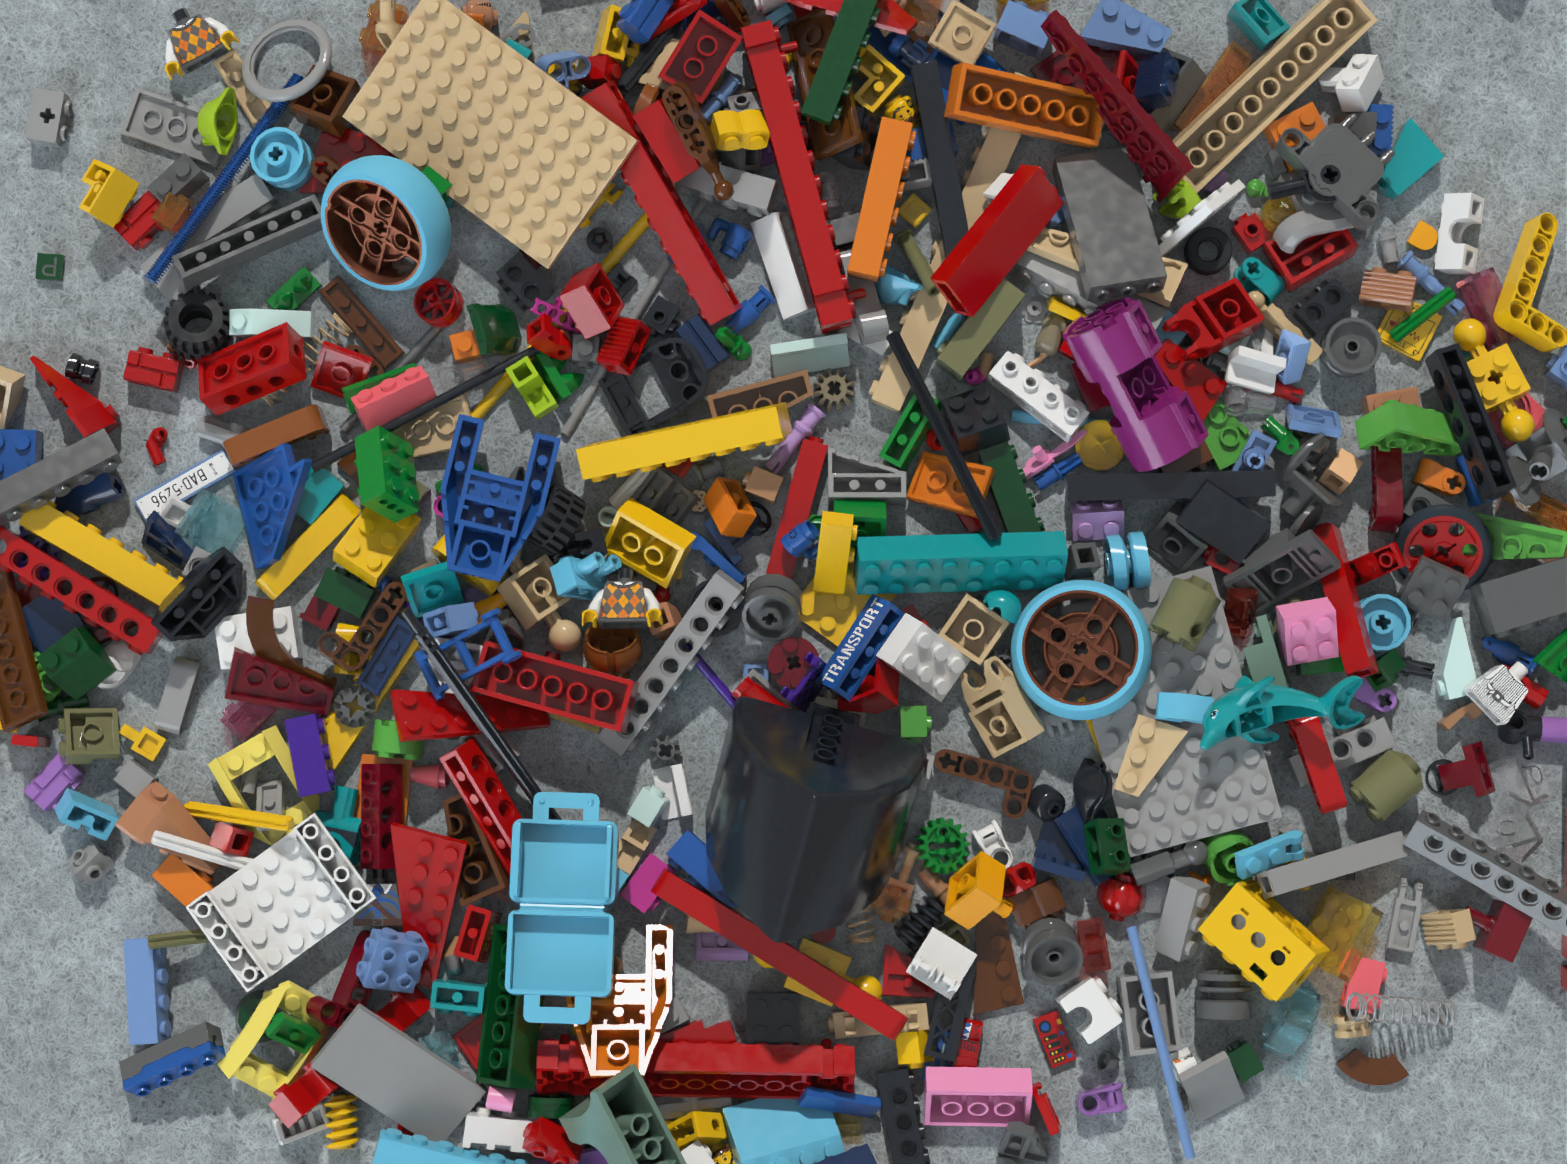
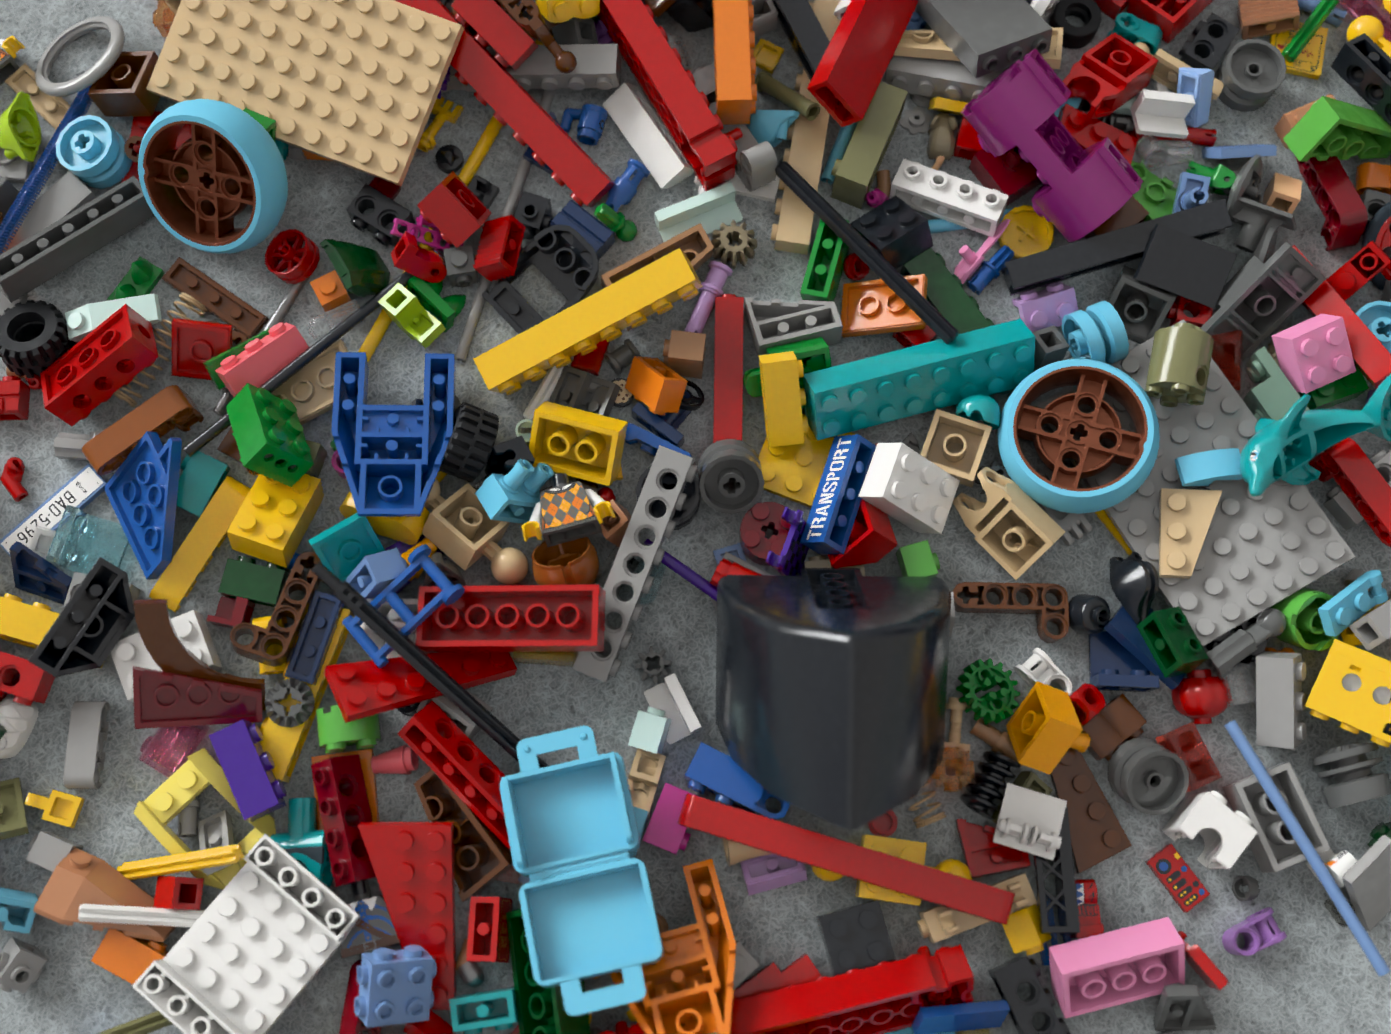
camera: 15 degrees left, 10 degrees down
(800, 539) = (741, 396): blue piece -> none

